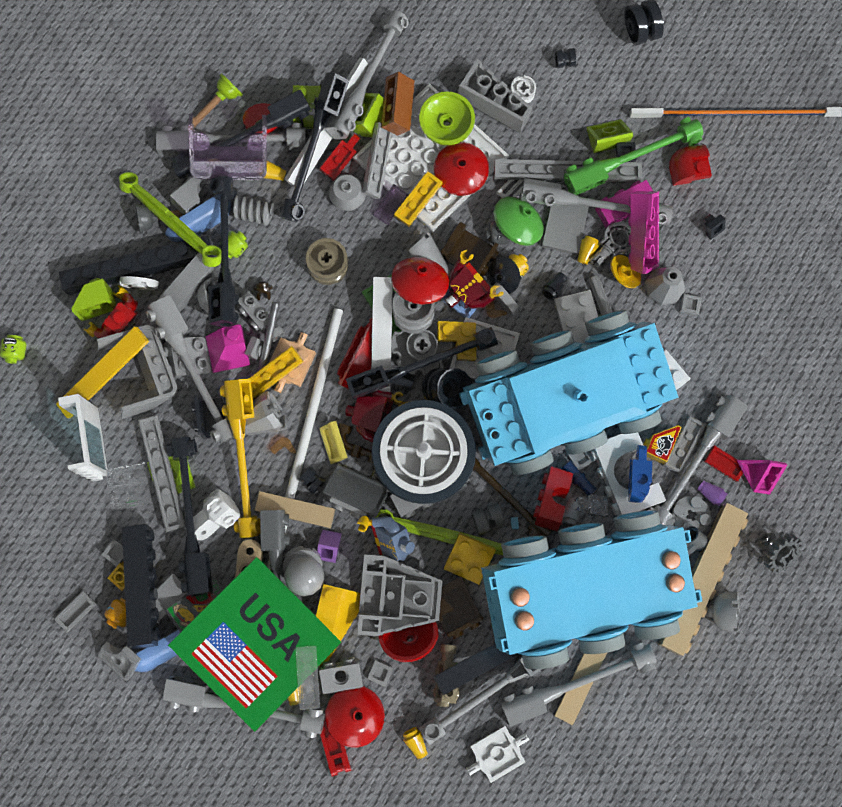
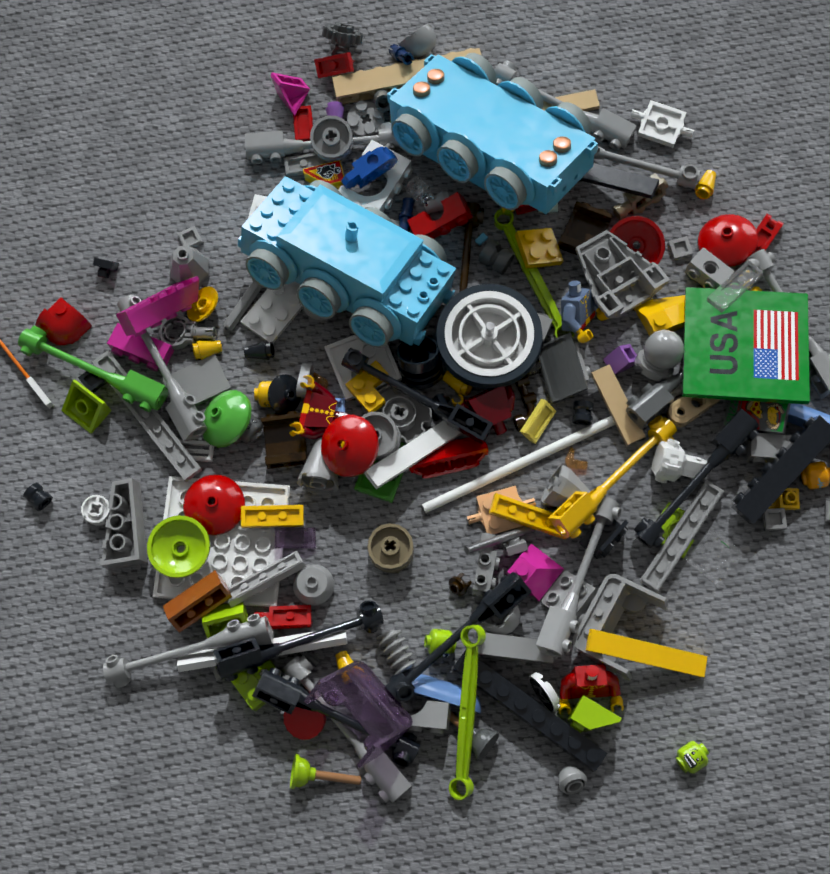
camera: 120 degrees left, 5 degrees down
(70, 256) = (571, 780): none -> light grey cone
(94, 462) = (695, 637): white panel -> none
(688, 455) = (328, 128): none -> light grey wheel
(726, 586) = (400, 54): none -> dark blue pin
(757, 524) = (334, 65): none -> red tile

